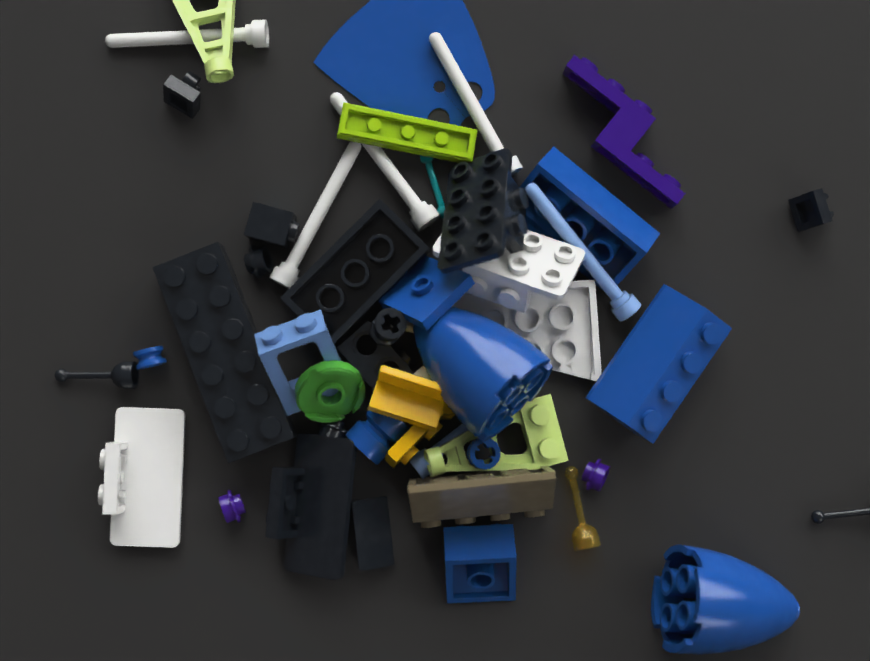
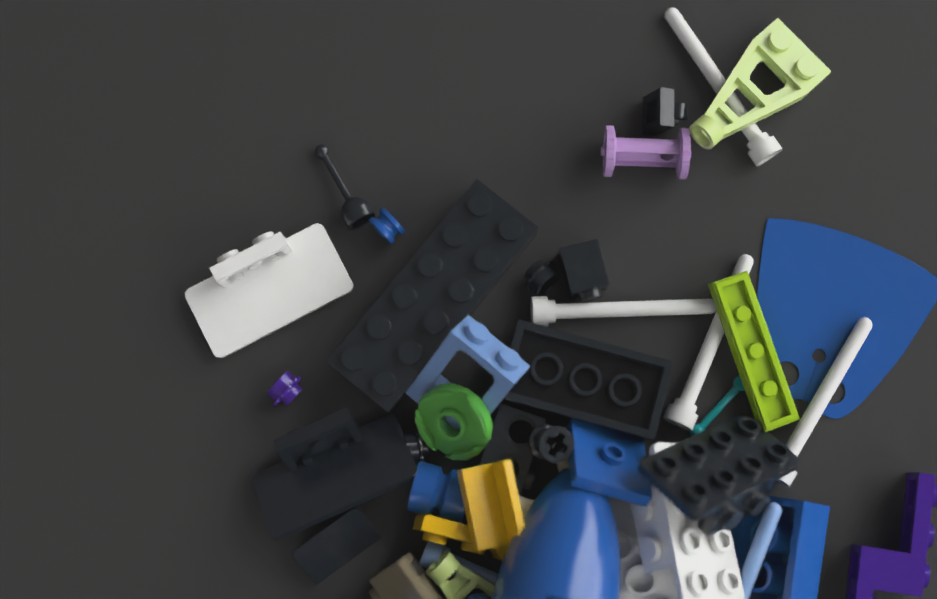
camera: 70 degrees right, 5 degrees down
(208, 124) = (646, 152): none -> lavender hose

